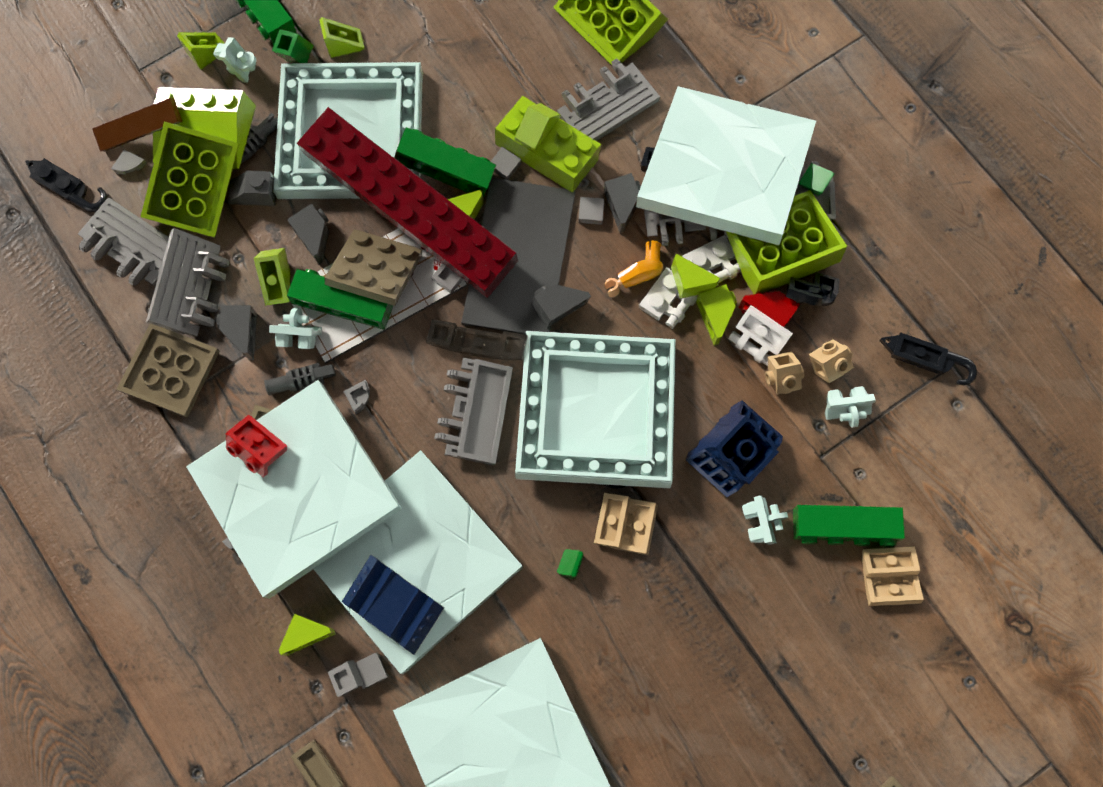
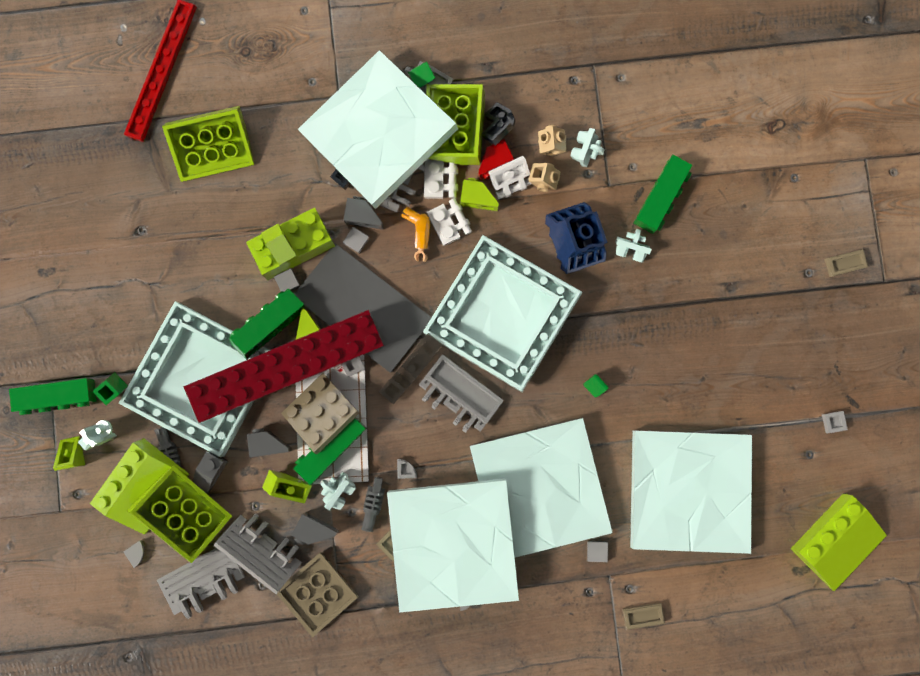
camera: 65 degrees left, 10 degrees up
(63, 184) = (126, 608): black plate -> none
(136, 124) = (112, 533): reddish brown tile -> none
(254, 445) = (412, 558): red bracket -> none
(303, 633) = (552, 583): lime slope -> none
(341, 38) = (120, 348): lime slope -> none
(345, 678) = (595, 570): light grey tile -> none
(392, 604) = (570, 515): dark blue slope -> none
(557, 302) = (414, 300): dark grey slope -> none
(608, 108) = (282, 187): light grey hinge -> none
(626, 523) = (587, 335): tan slope -> none
(691, 278) = (446, 201): lime slope -> none
(891, 576) = (708, 186): tan slope -> none
(927, 356) = (580, 76): black plate -> none

